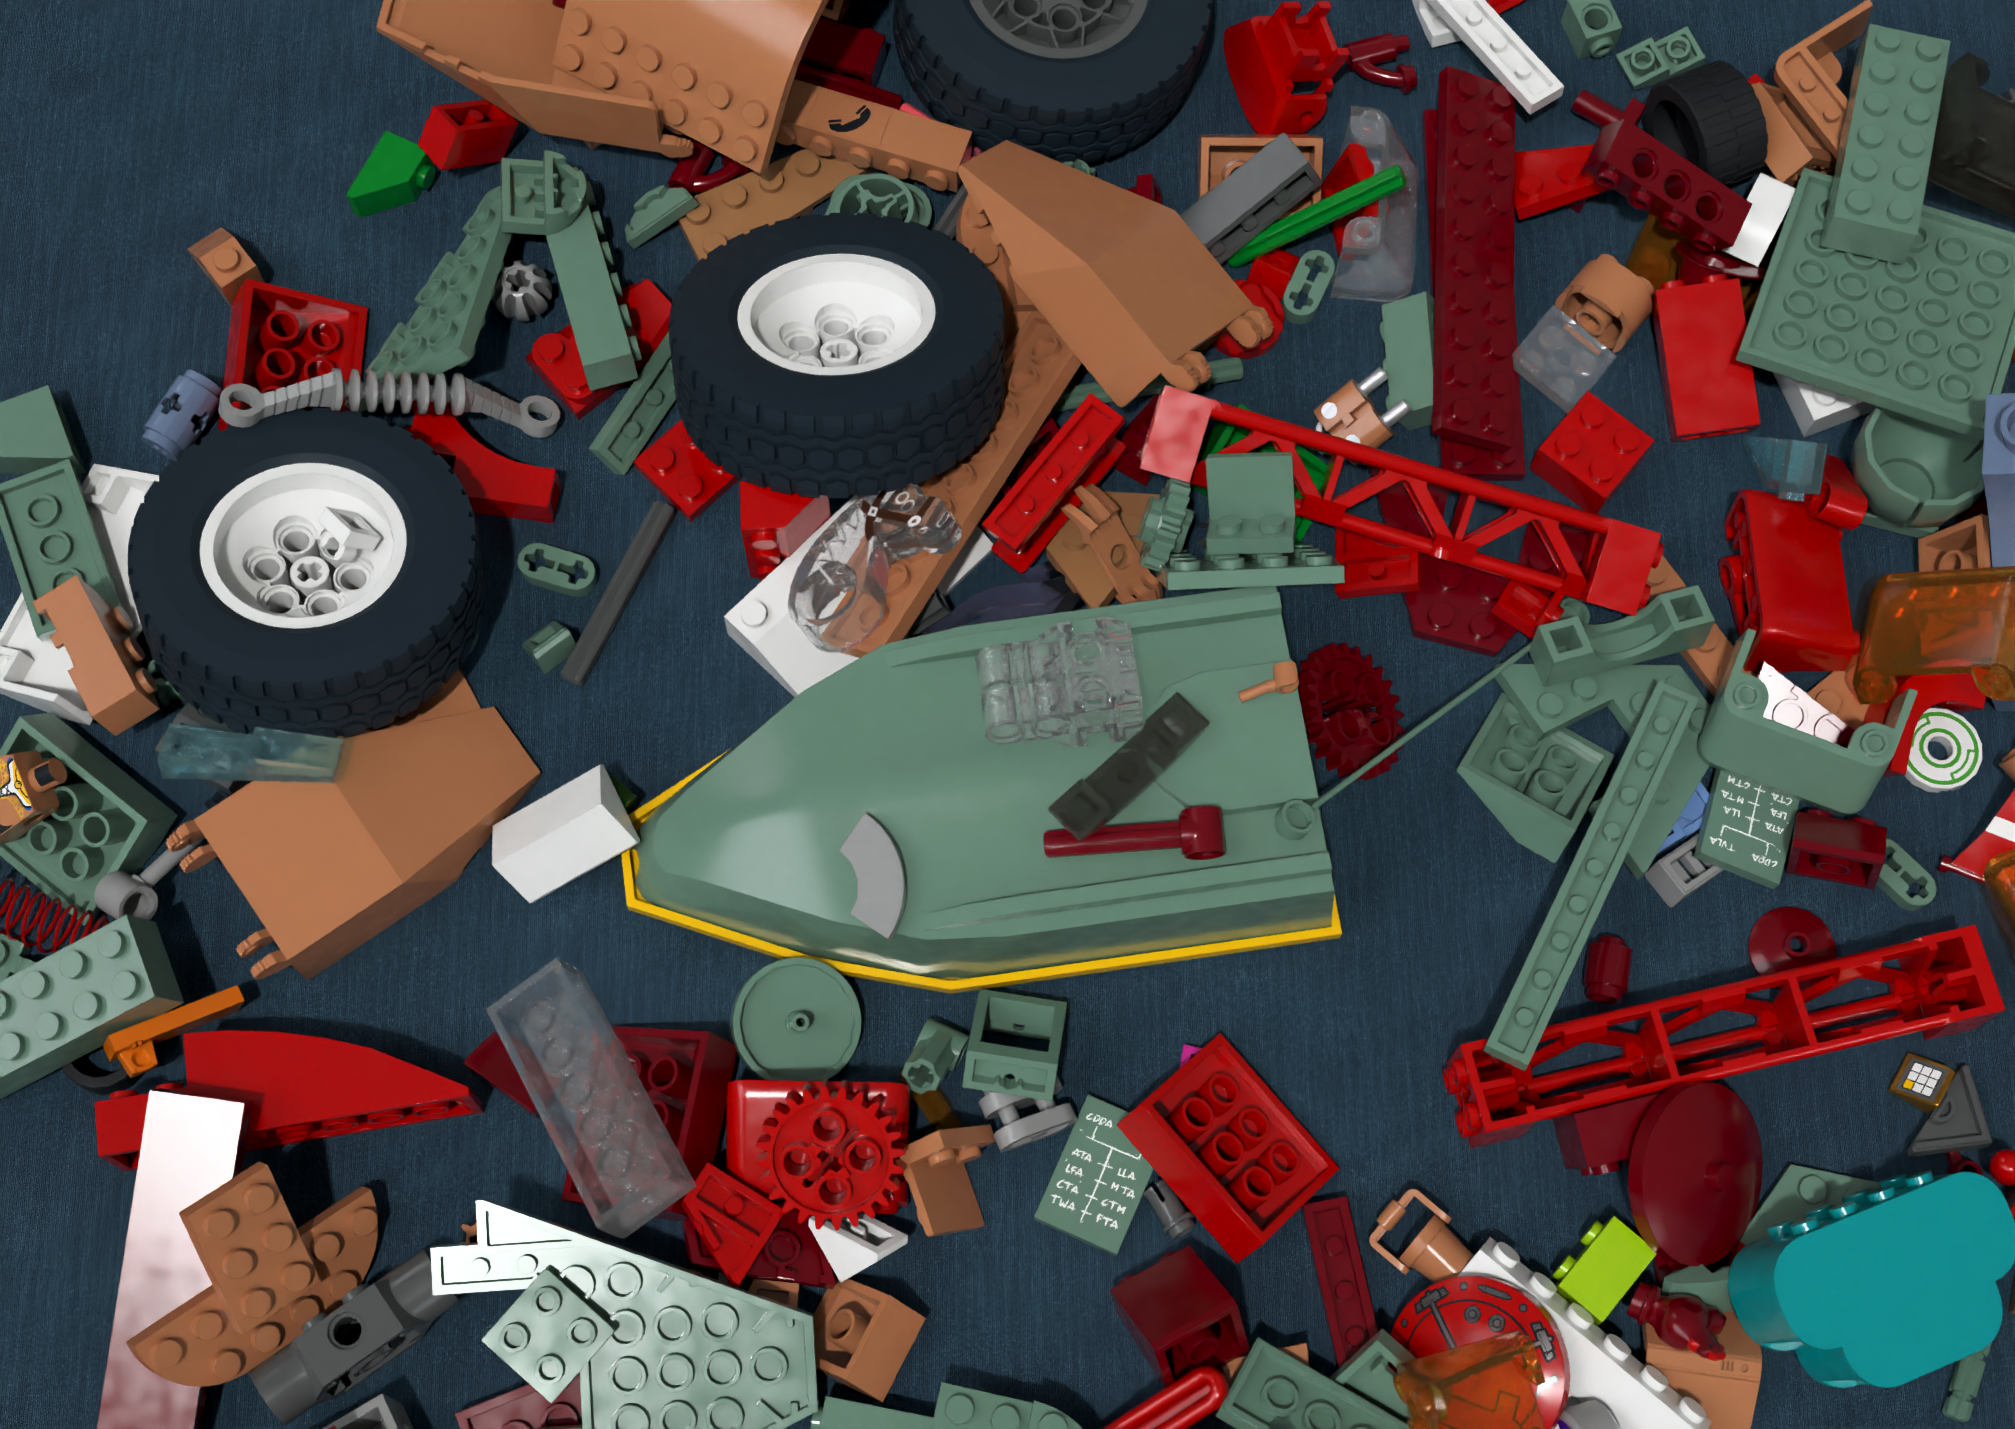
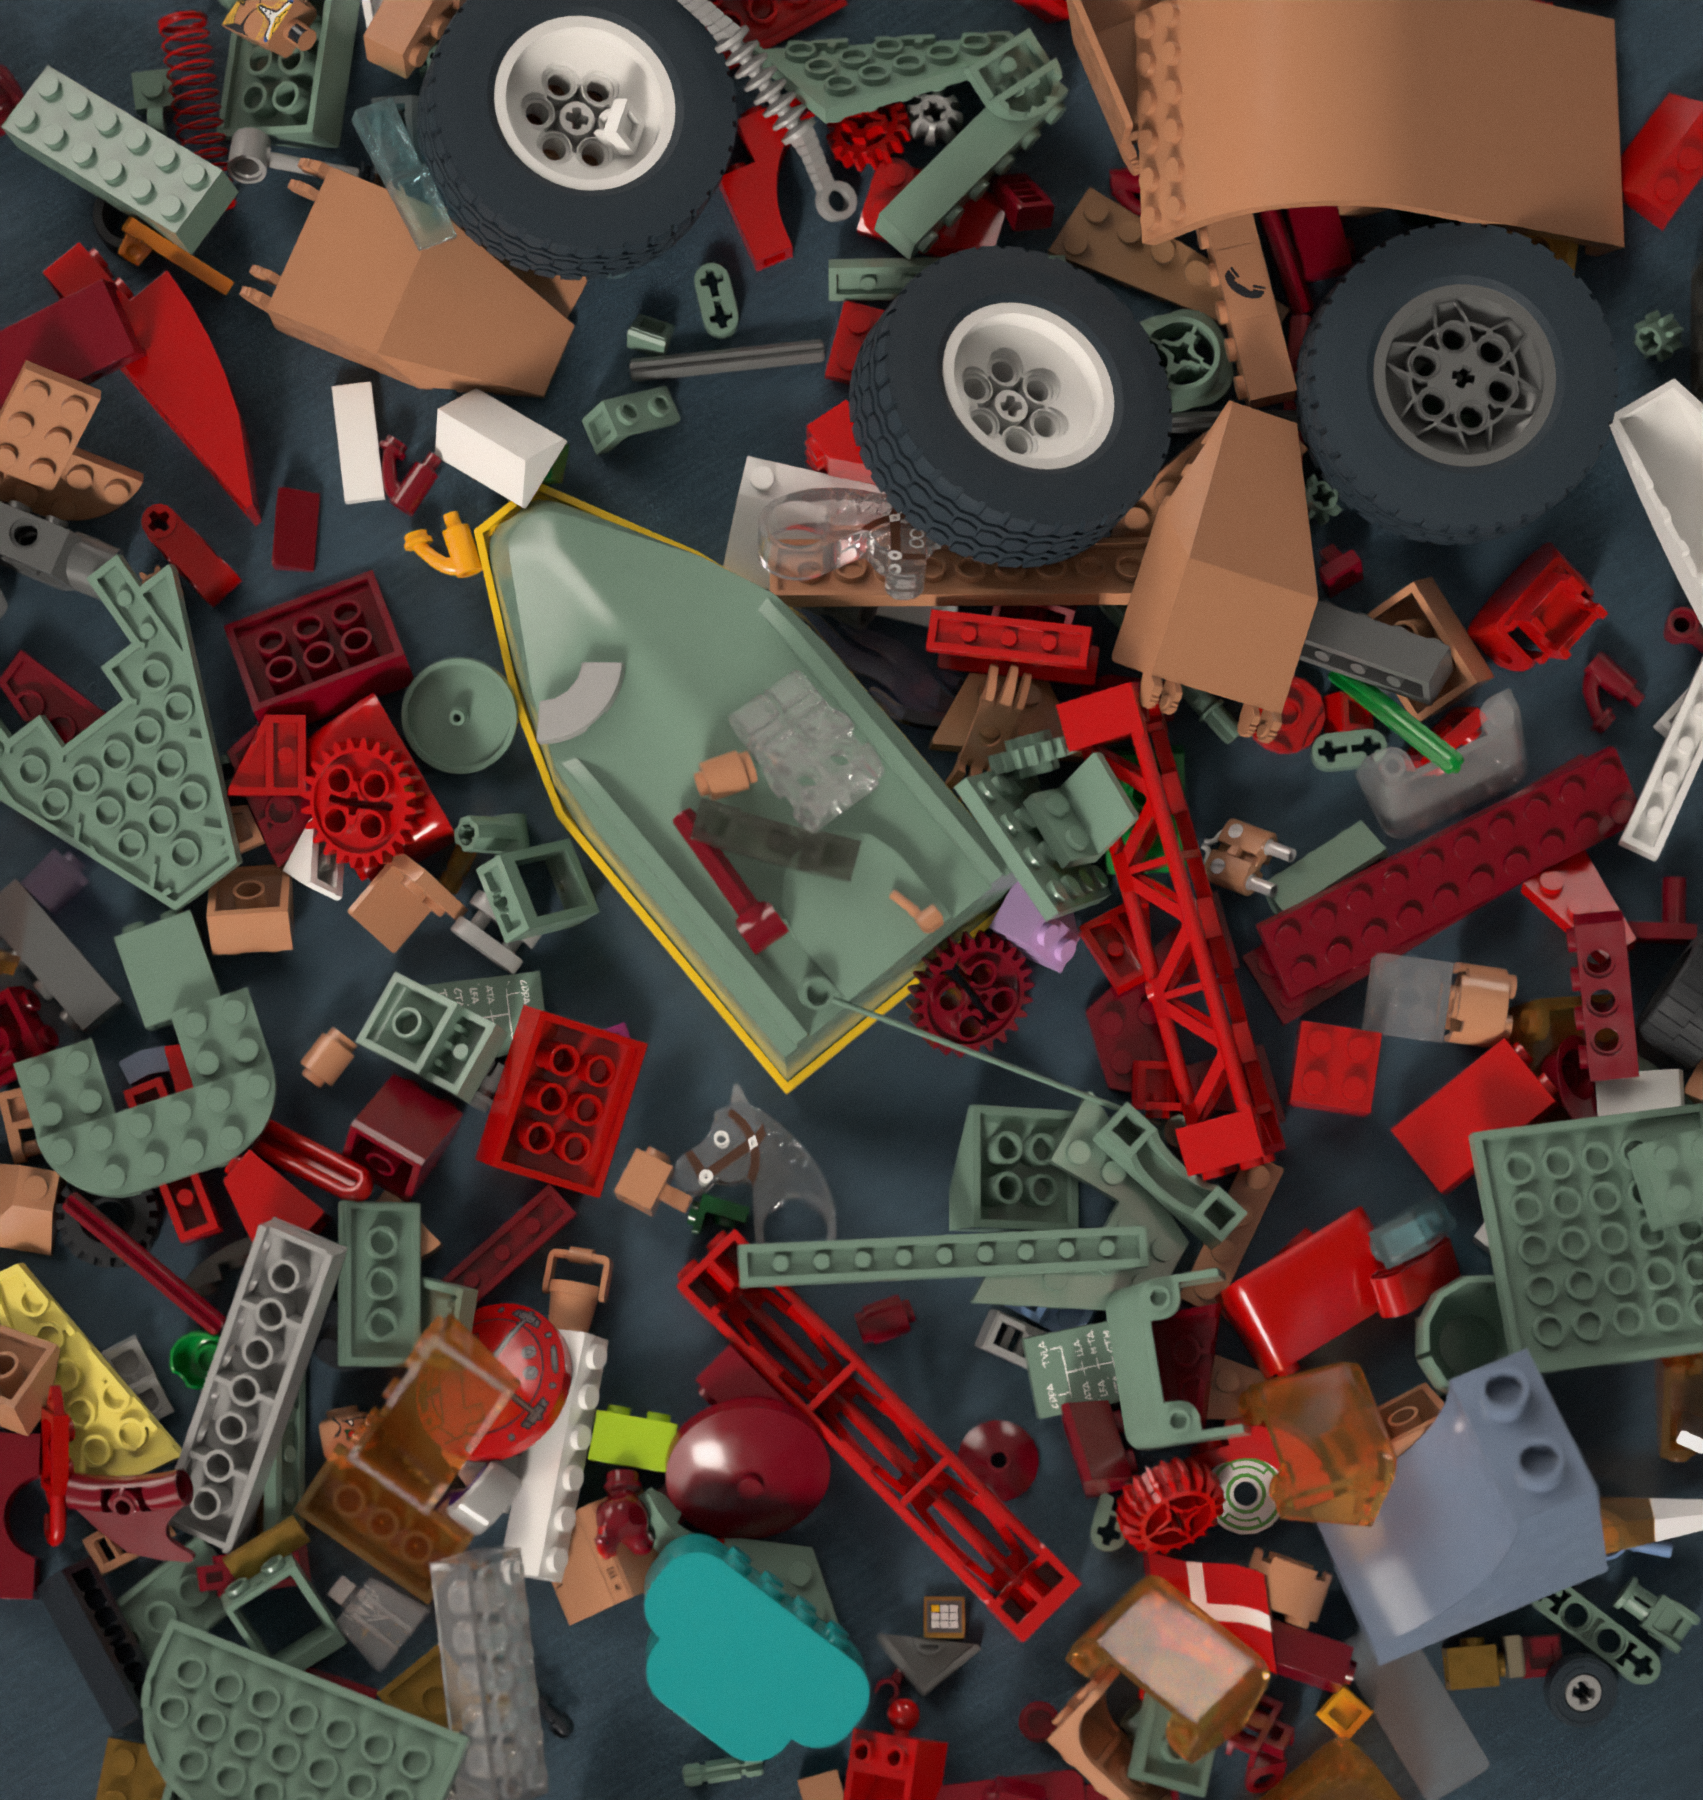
camera: 60 degrees right, 10 degrees up
(455, 1190) = (190, 554): none -> red piece
(463, 962) = (358, 442): none -> white tile
(501, 349) = (870, 136): none -> red gear
(544, 932) = (416, 484): none -> dark red plant
(548, 1335) = (107, 679): bracket -> none
(590, 1099) = (301, 597): clear brick -> none
(612, 708) = (629, 415): none -> sand green bracket
(632, 928) = (463, 558): none -> light orange plant
(652, 259) = (1022, 202): none -> dark red slope
(656, 212) = (1075, 178): sand green tile -> none
(1036, 777) = (725, 775): none -> nougat brick
(1053, 1348) = (328, 1058): none -> nougat brick
(1094, 1232) = (432, 1037): none -> sand green slope
(1320, 617) = (1040, 941): none -> lavender slope
(1359, 1106) = (648, 1183): none -> nougat brick
(1397, 988) = (760, 1153): none -> clear animal
(1424, 1057) = (725, 1213): none -> dark green bracket
(1929, 811) = (1170, 1505): none -> red gear

